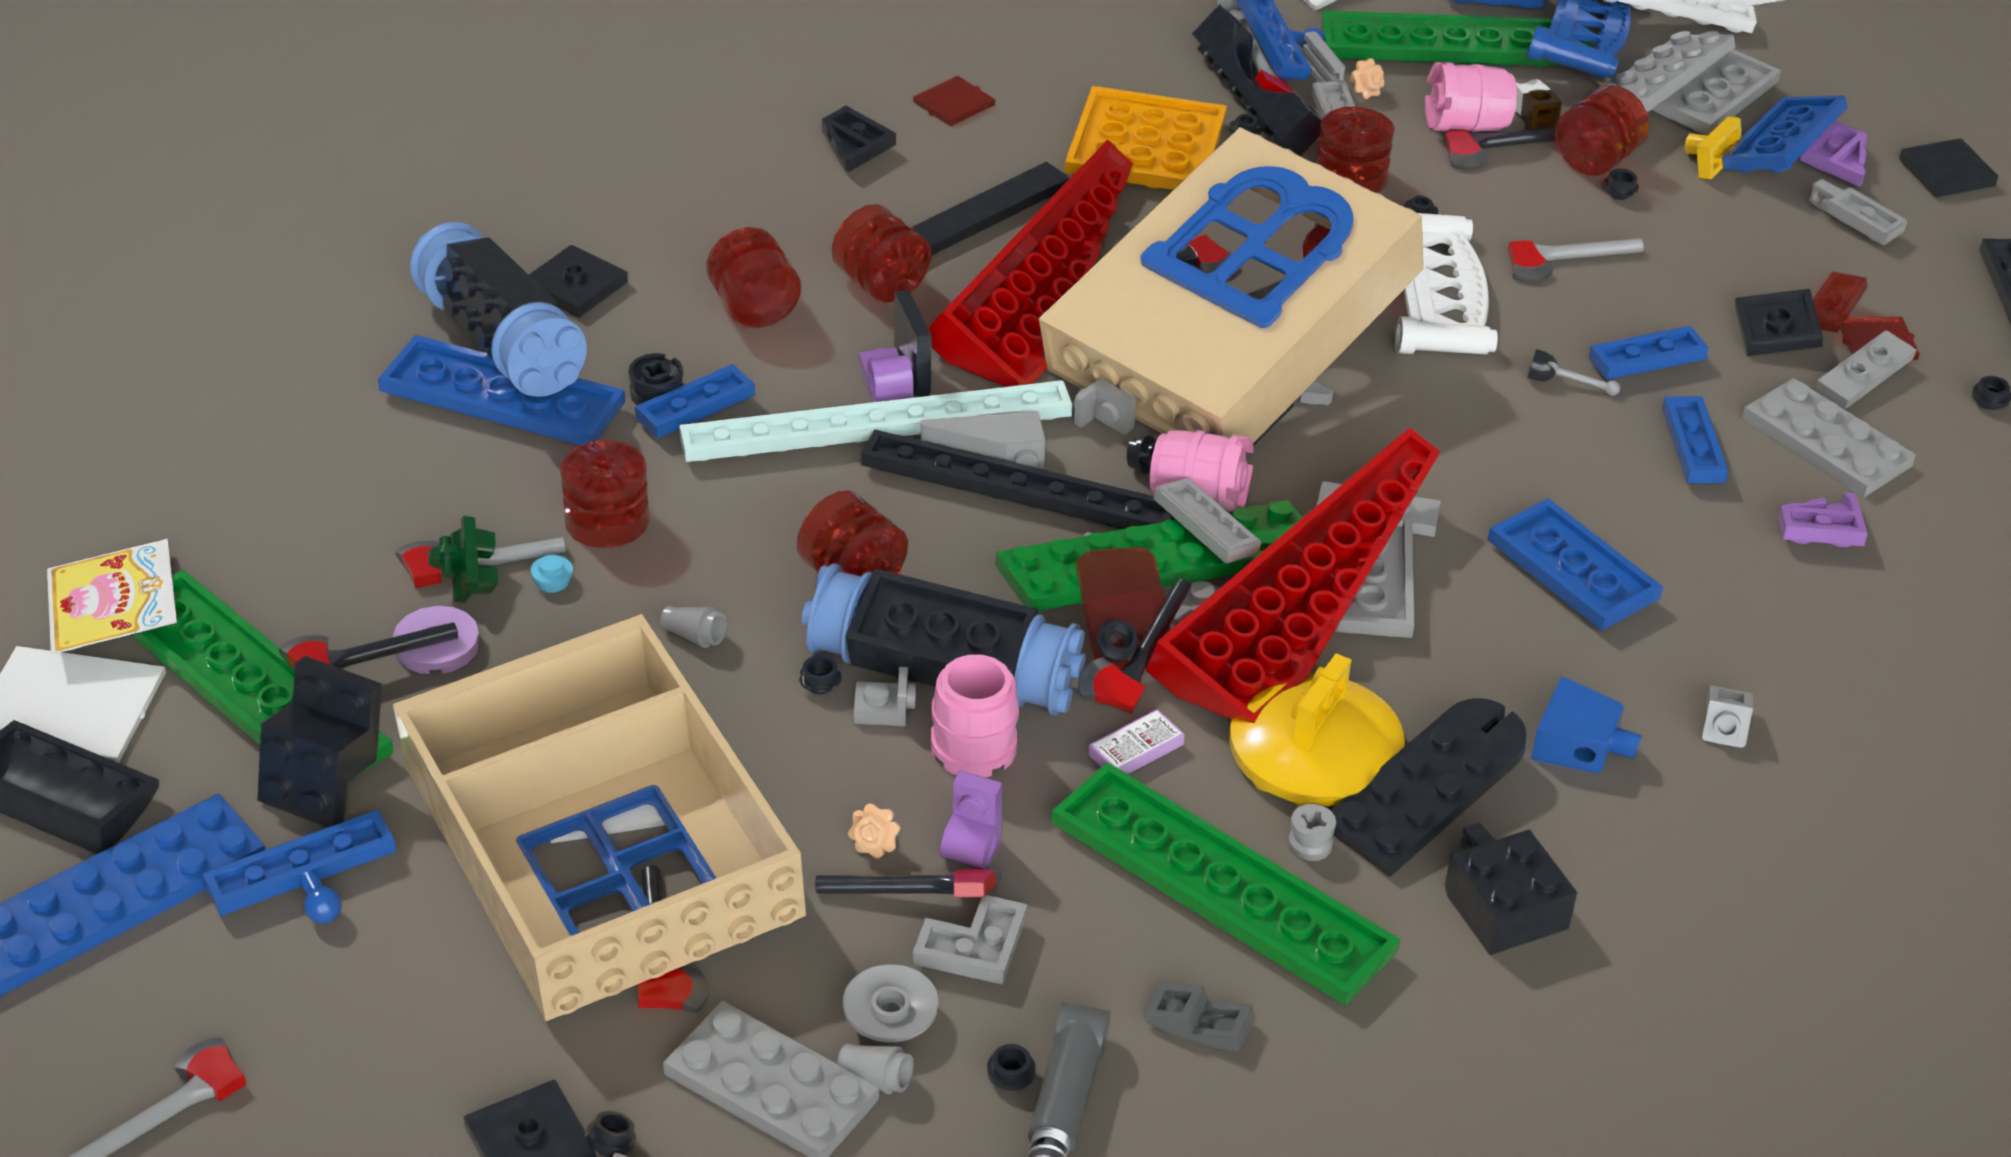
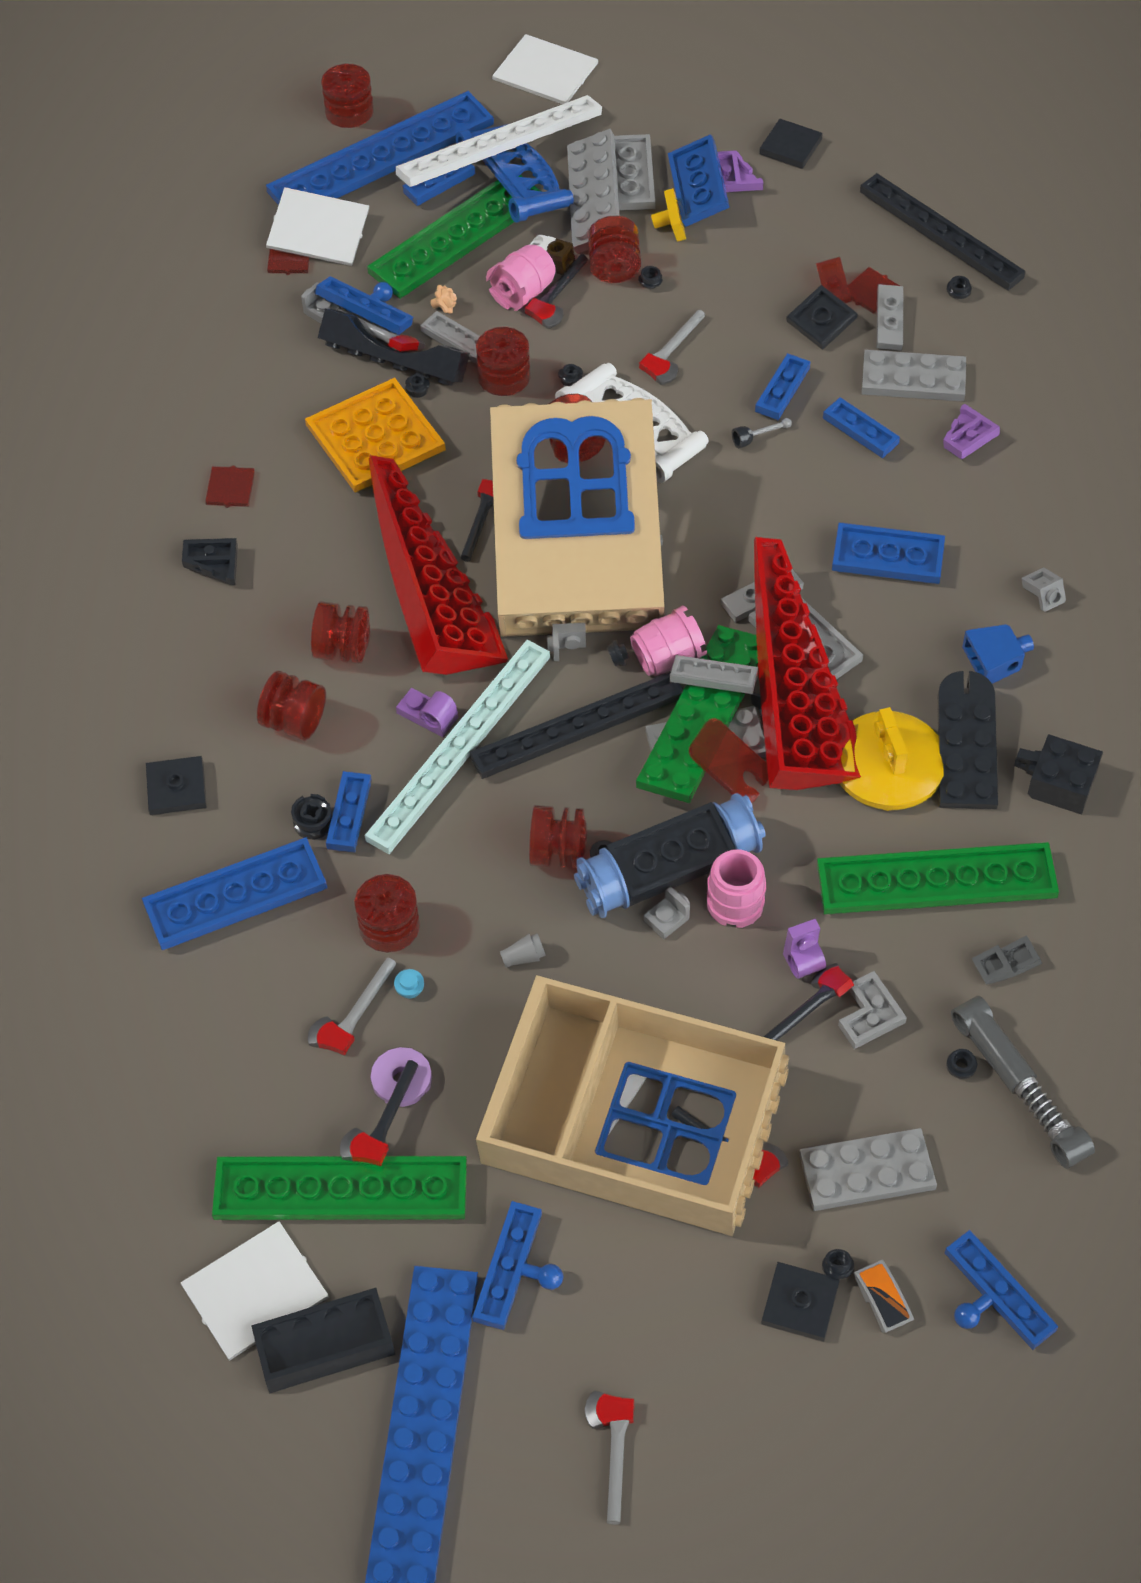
camera: 40 degrees left, 15 degrees up
(110, 596) = (198, 1207): sticker -> none
(319, 742) = (449, 1192): black bracket -> none
(459, 556) = (364, 1017): dark green hips -> none
(499, 308) = (184, 843): brick -> none
(819, 674) = (624, 921): black plate -> none
(874, 830) = (757, 993): light nougat plant -> none
(880, 1065) = (908, 1117): light grey cone -> none
(890, 1003) = (880, 1068): light grey dish -> none
(913, 340) = (429, 676): black tile -> none
(991, 206) = (343, 549): black tile -> none
(999, 436) = (543, 702): light grey slope -> none
(1123, 632) = (747, 783): black plate -> none
(1123, 689) = (769, 807): piece -> none
(1137, 743) = (810, 834): tile -> none
(1311, 832) = (942, 823): light grey wheel -> none
(1322, 59) = (412, 305): light grey tile -> none
(1858, 211) = (782, 209): light grey hinge -> none

